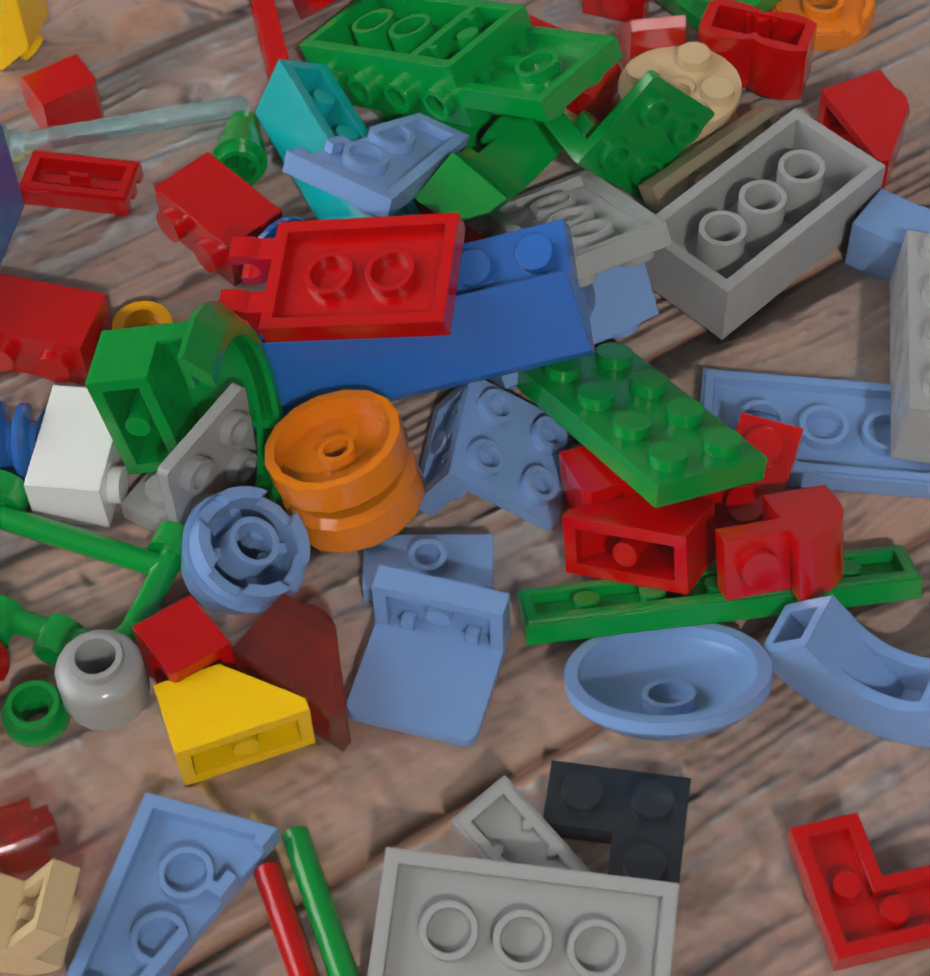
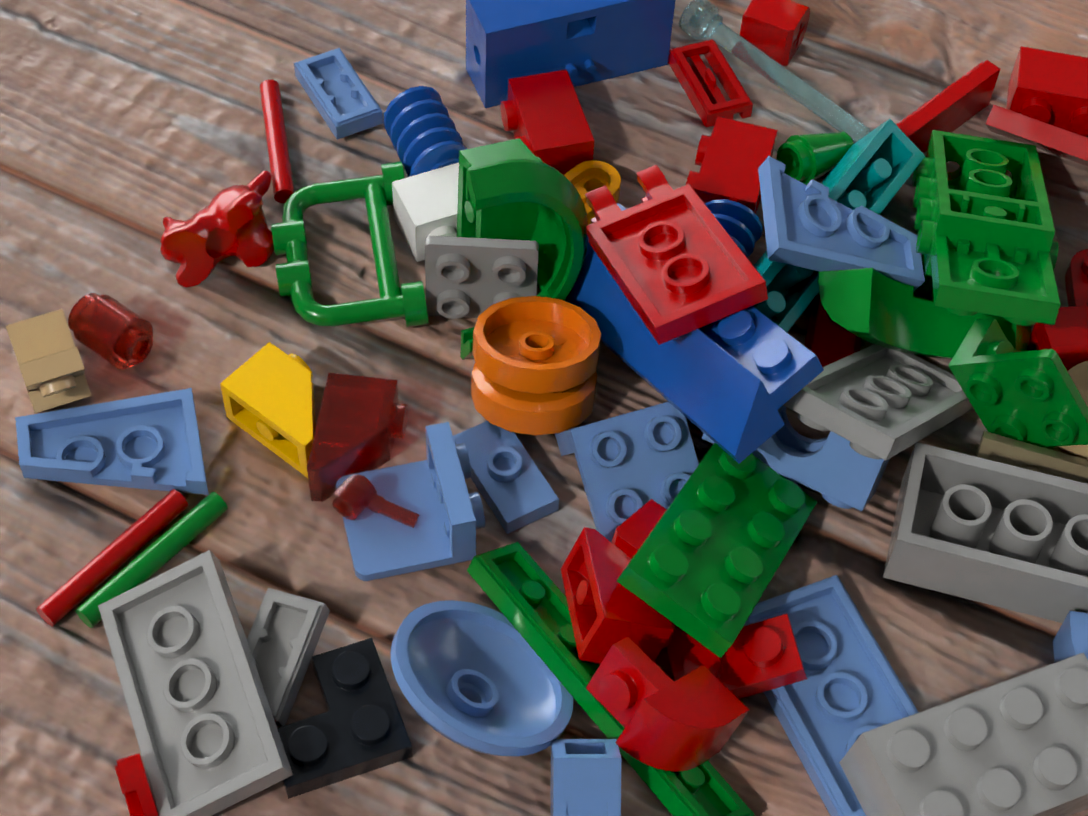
camera: 55 degrees right, 0 degrees up
(28, 700) = (227, 296): green plate -> none
(102, 679) = (264, 311): light grey head -> none
(181, 642) = (323, 344): red panel -> none
(242, 552) = (417, 337): medium blue cone -> none
(390, 692) = (359, 493): none -> clear red hand

